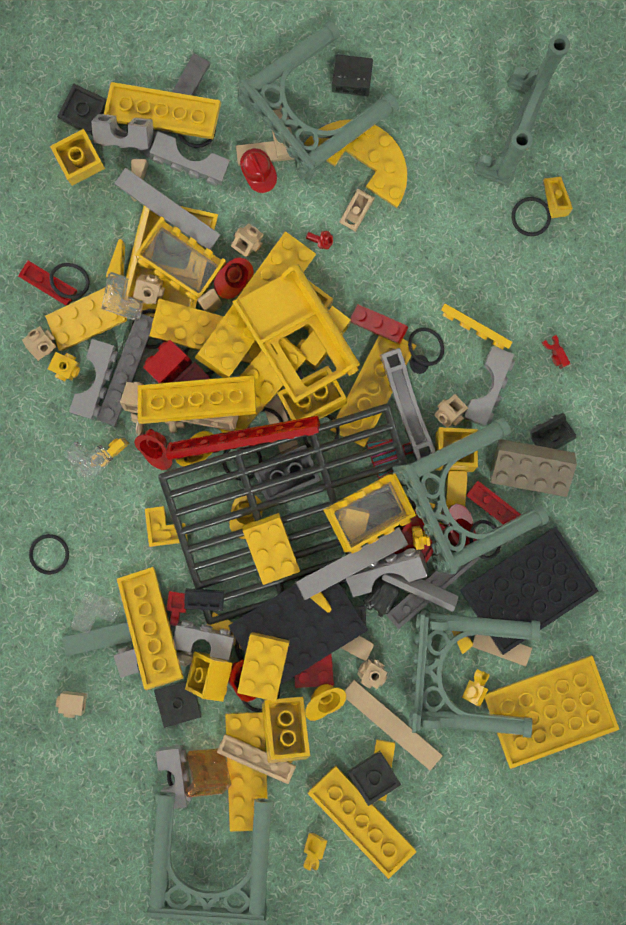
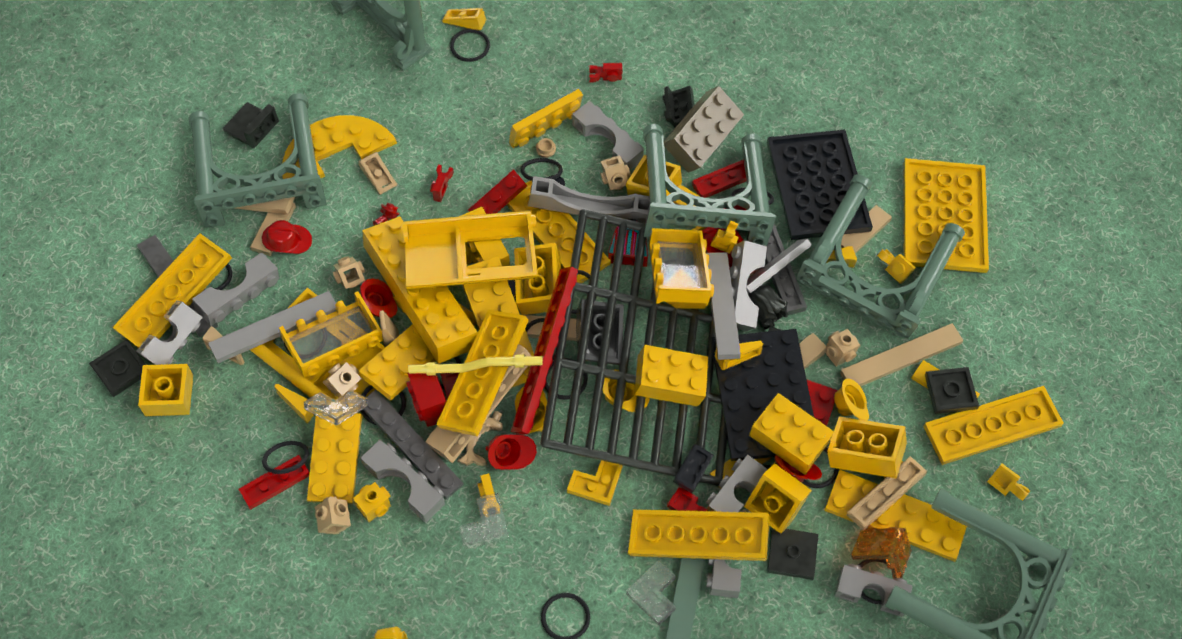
camera: 70 degrees left, 25 degrees down
(211, 426) = (518, 361): none -> light yellow bar
(367, 268) = (439, 186): none -> red plate
(452, 338) = (545, 148): none -> tan plate

